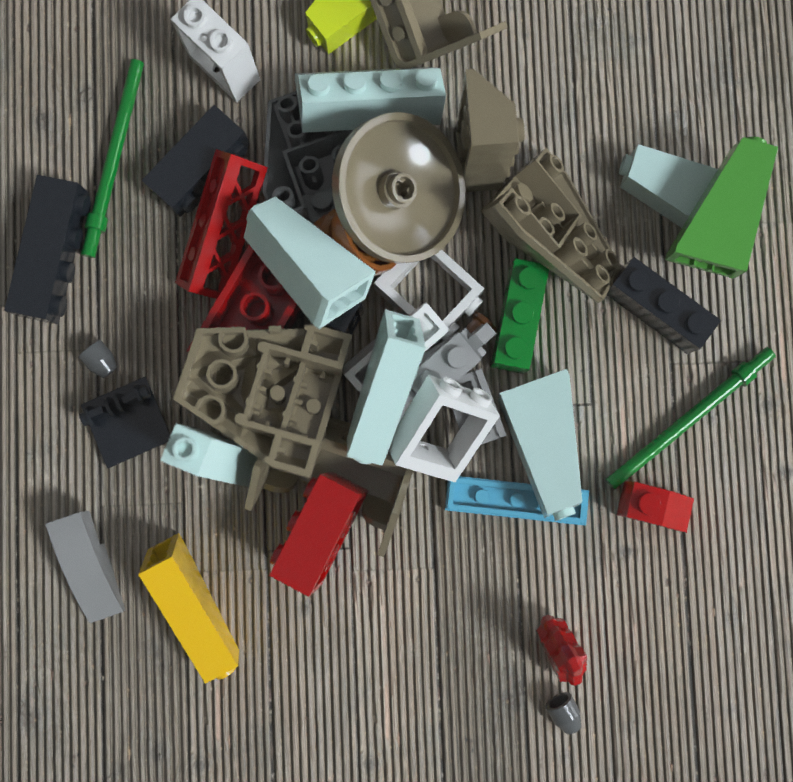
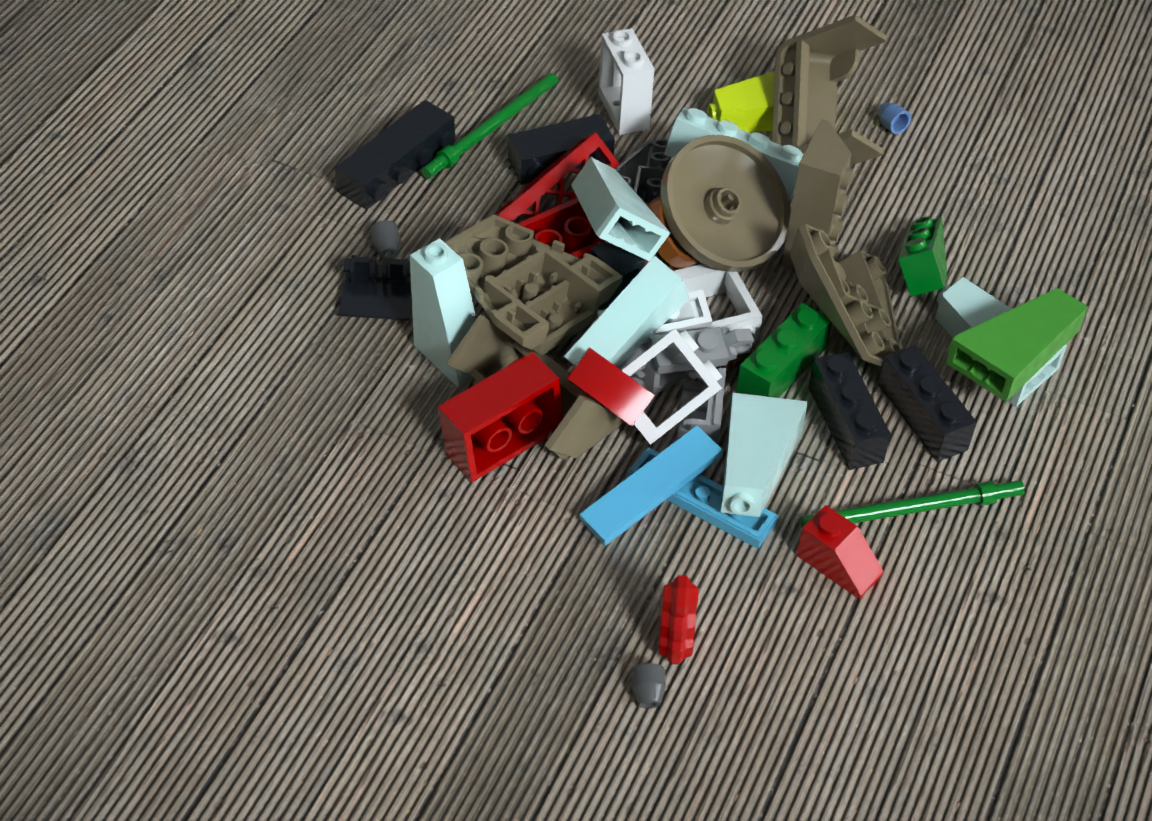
camera: 25 degrees right, 35 degrees down
(86, 565) = (270, 366): light grey slope -> none
(189, 608) = (341, 429): yellow slope -> none
(399, 473) = (610, 386): none -> red slope
(475, 520) = (650, 485): none -> medium azure tile
(588, 125) = (924, 256): none -> green slope
(601, 350) = (849, 411): none -> black brick

